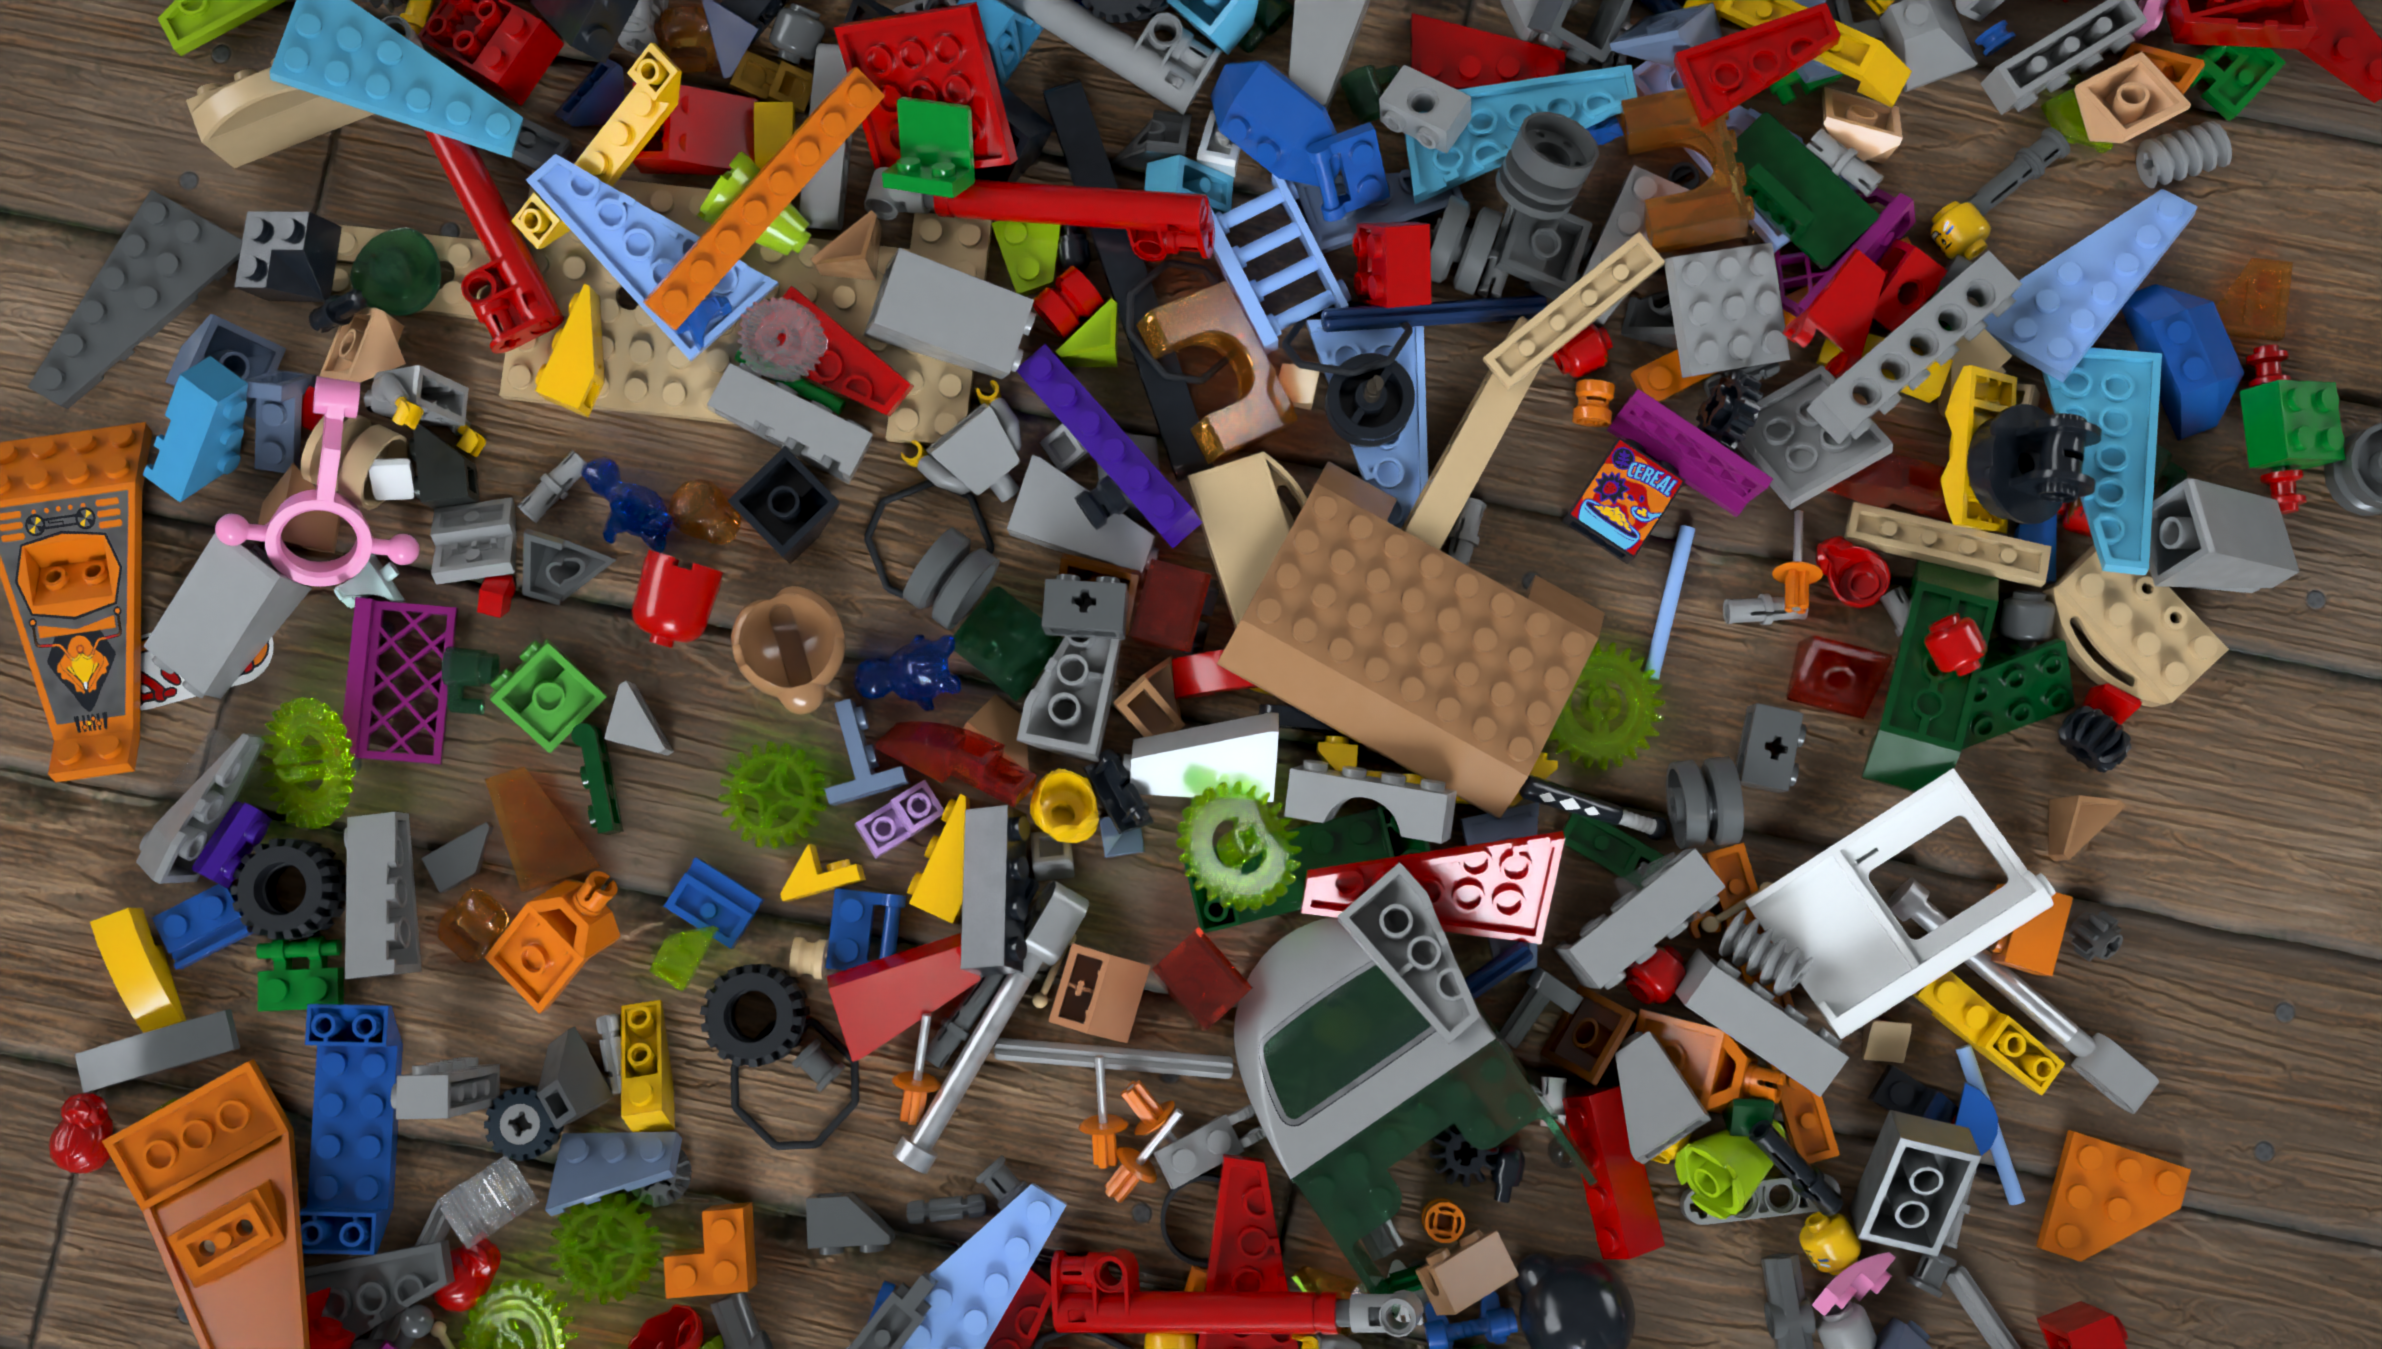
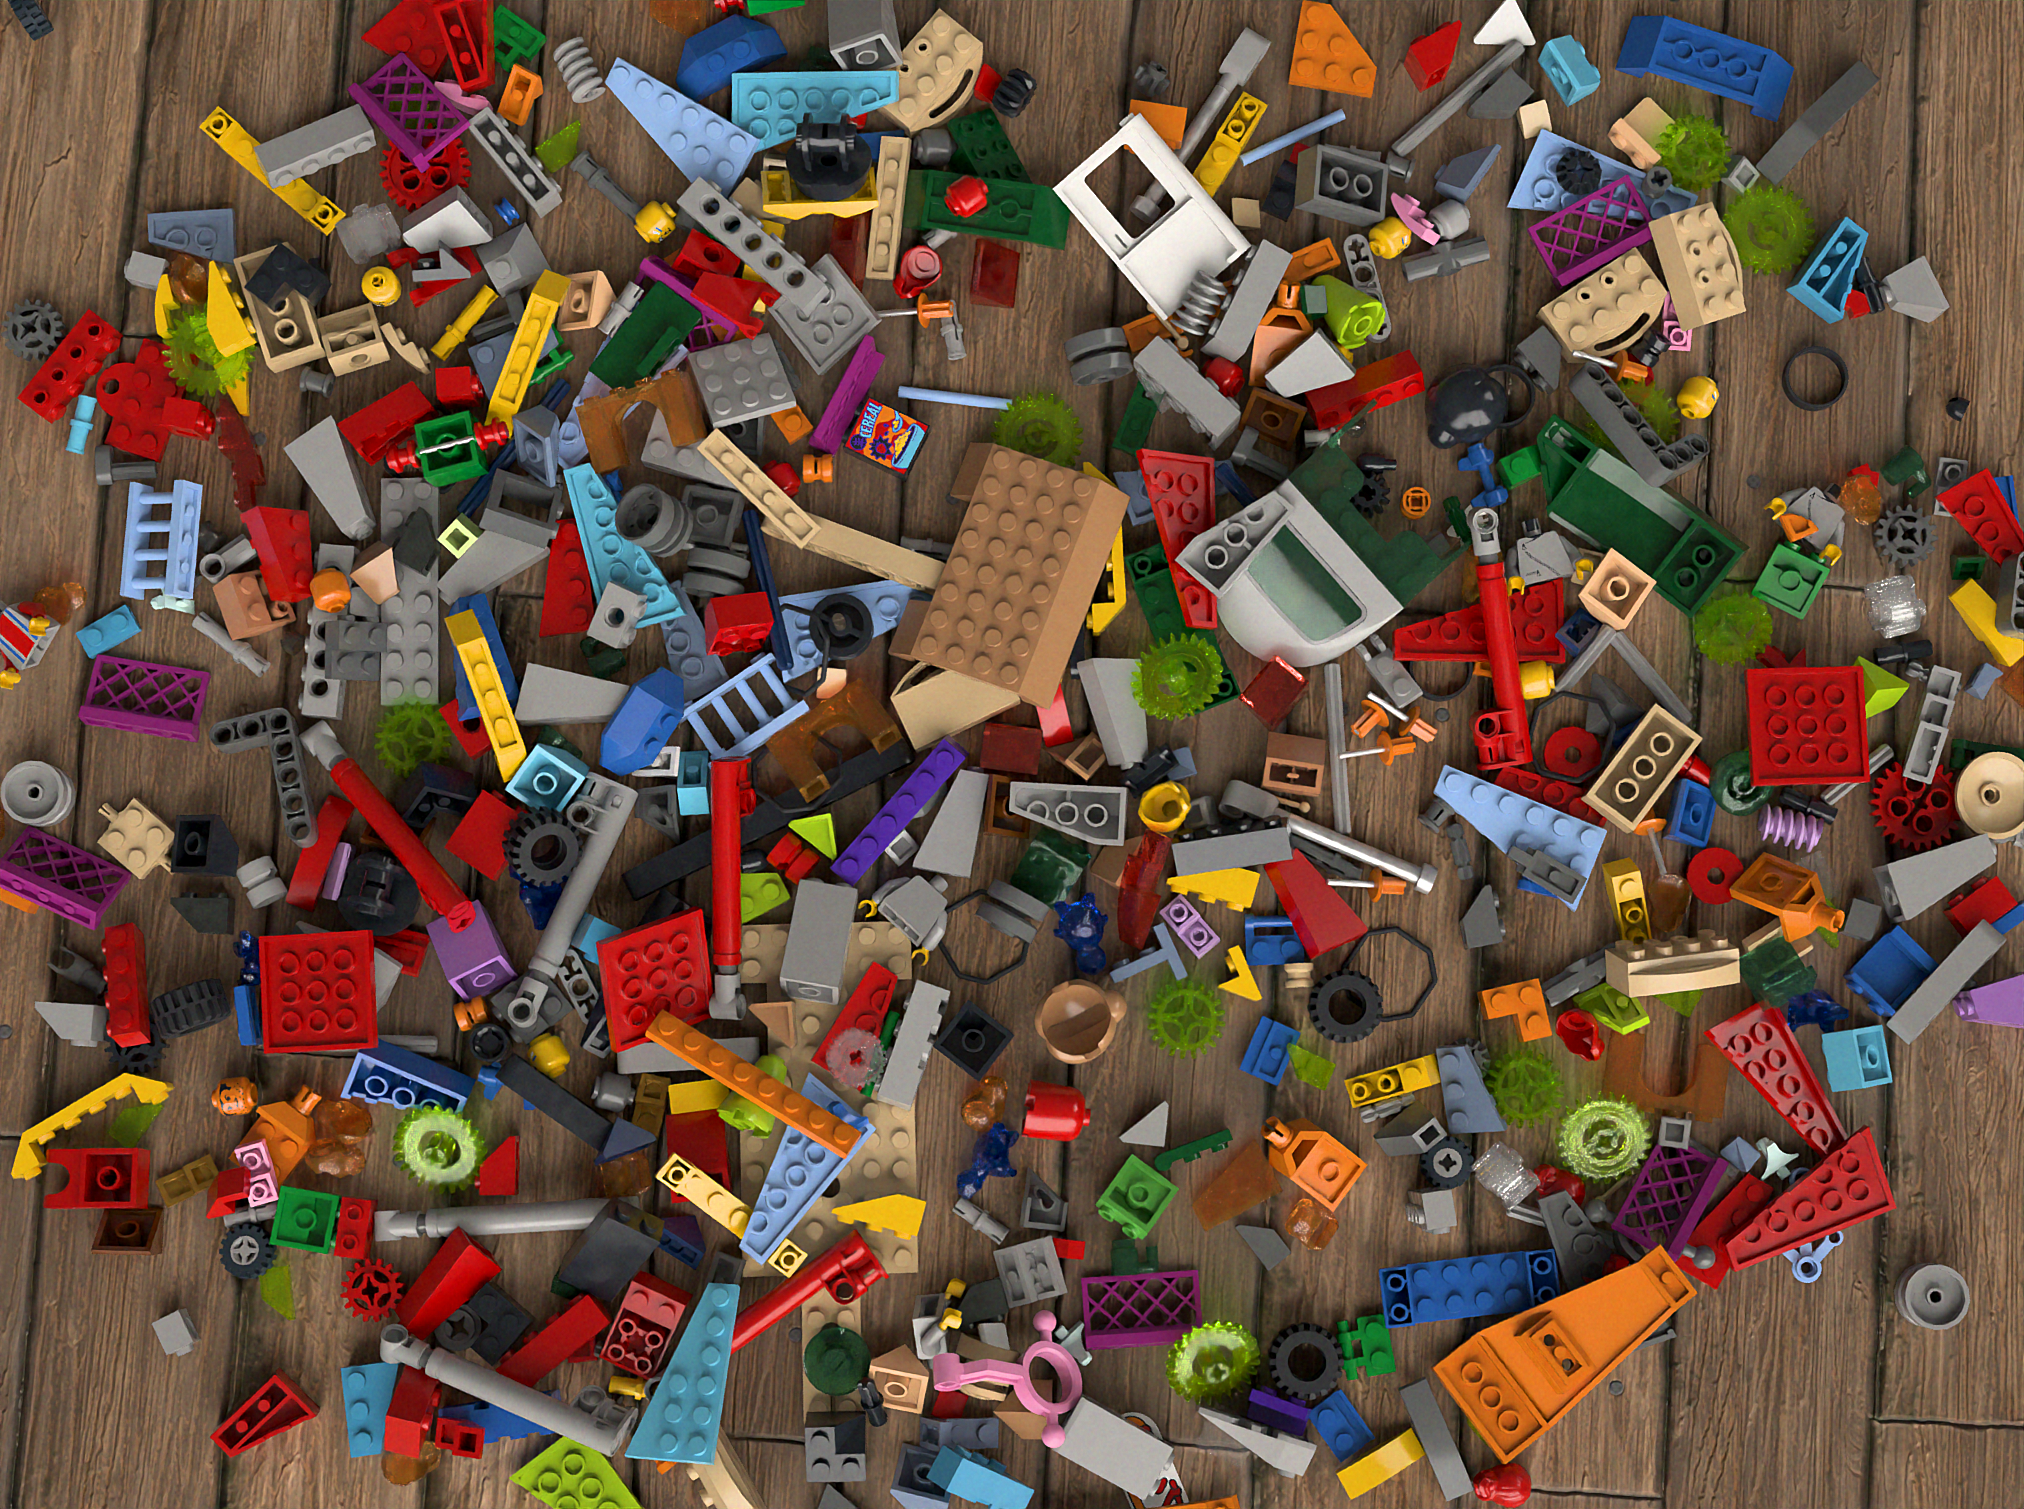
camera: 95 degrees left, 0 degrees up
(380, 897) = (1300, 1293): light grey wedge -> none
(818, 1065) = (1373, 957): dark grey bush -> none
(933, 148) = (699, 968): green bracket -> none
(1102, 502) = (943, 808): black wheel -> none
(1102, 620) = (1029, 792): dark grey brick -> none
(1360, 169) = (671, 655): blue plate -> none
(1420, 810) = (1133, 552): light grey arch -> none
(1466, 1272) = (1448, 482): medium nougat brick -> none
(1576, 802) = (1110, 446): black piece -> none
(1683, 170) = (635, 426): black hinge -> none
(1730, 409) = (815, 370): black gear -> none
(1746, 62) = (560, 386): red wing -> none
(1754, 763) = (1037, 321): dark grey brick -> none
(1805, 1178) = (1348, 259): black pin -> none
(1978, 1115) = (1289, 146): blue tile -> none
(2076, 821) = (1074, 99): medium nougat slope -> none
(2127, 100) = (548, 113): light nougat slope -> none

